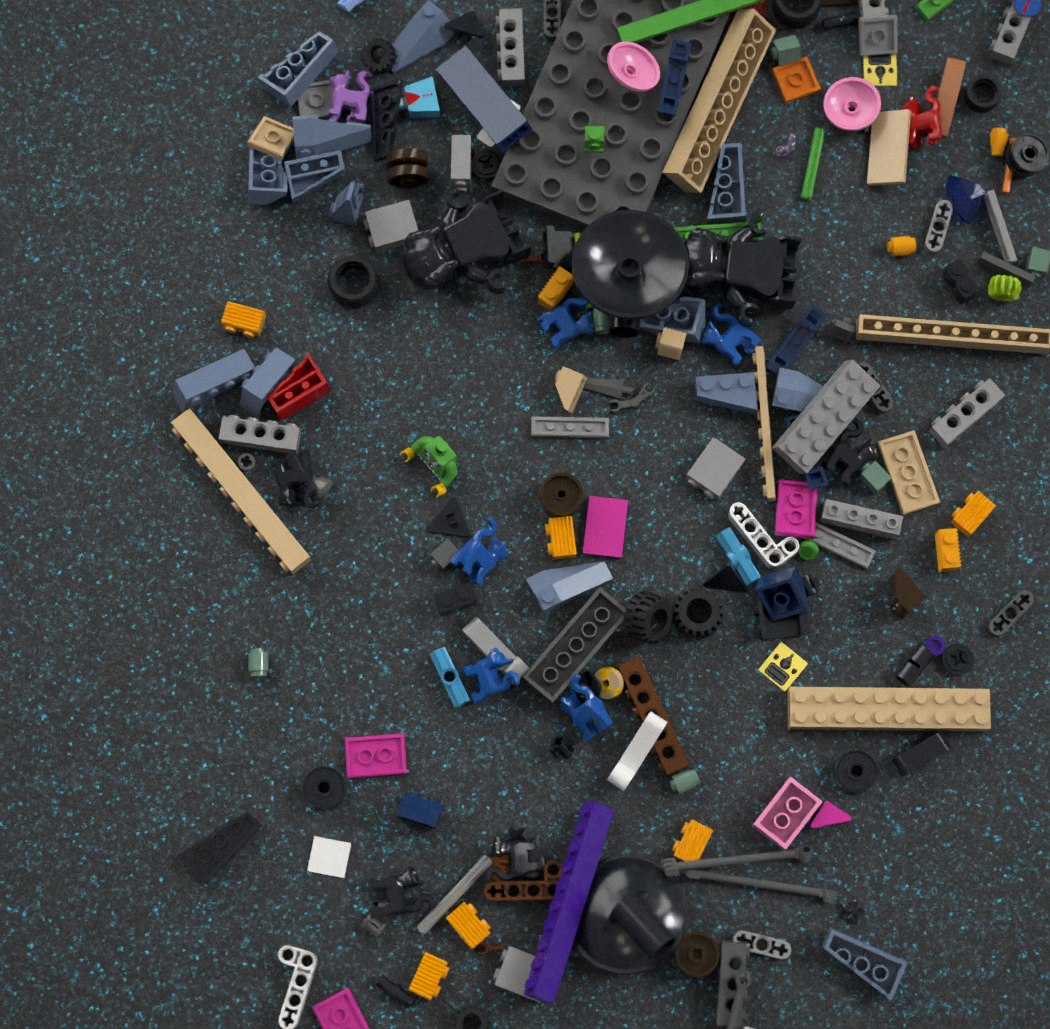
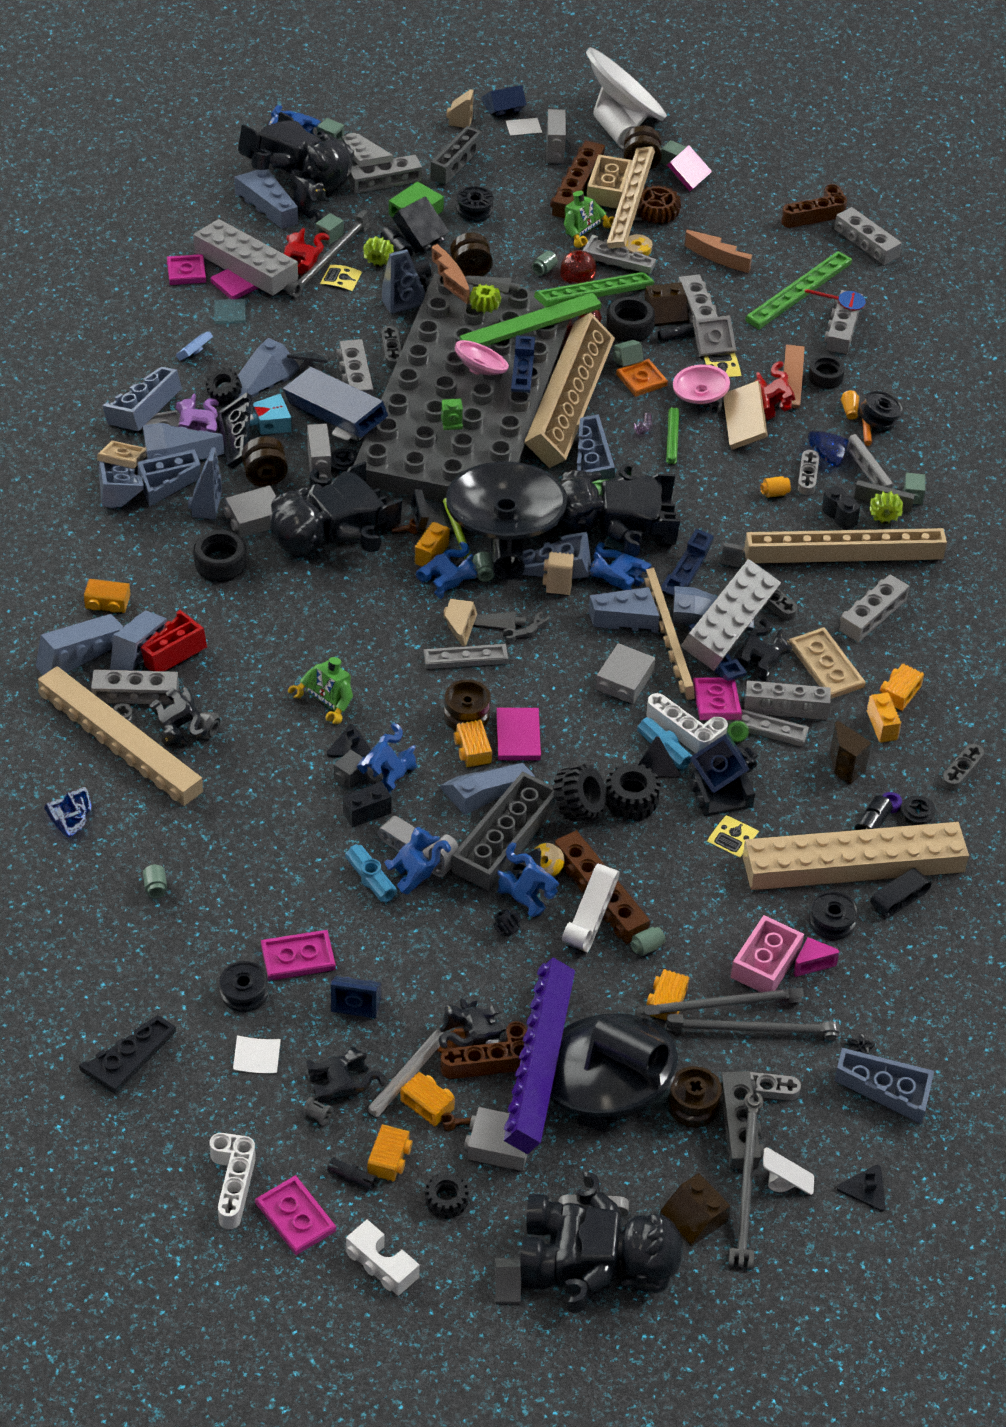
camera: 10 degrees left, 30 degrees down
(190, 573) = (70, 812): none -> clear blue brick
(874, 476) = (793, 666): sand green brick -> none

